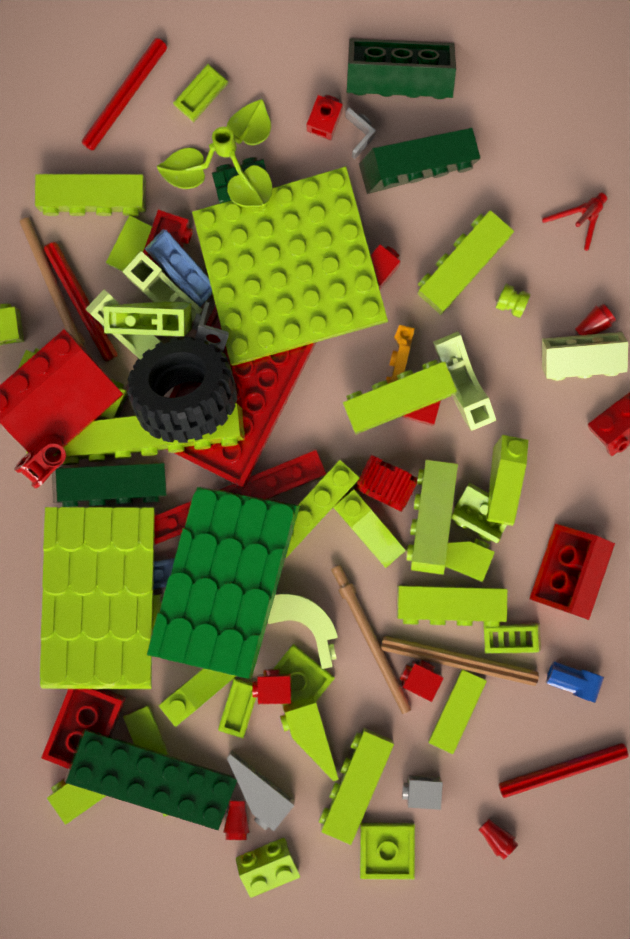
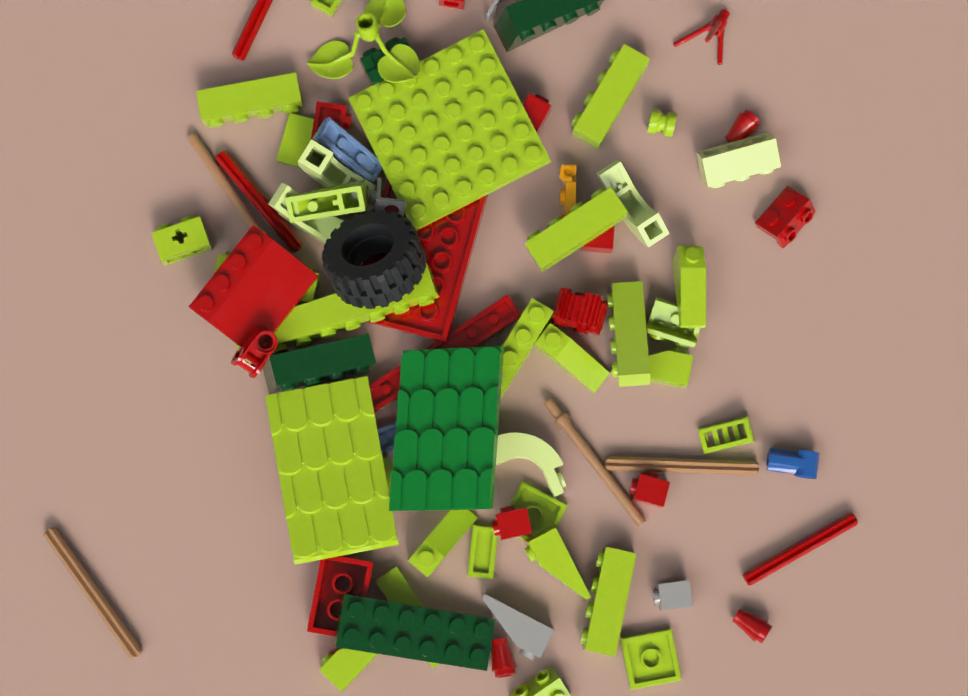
camera: 20 degrees left, 5 degrees down
(452, 603) = (663, 412): lime brick -> none
(457, 711) = (689, 513): lime tile -> none
(572, 571) = (769, 360): red slope -> none

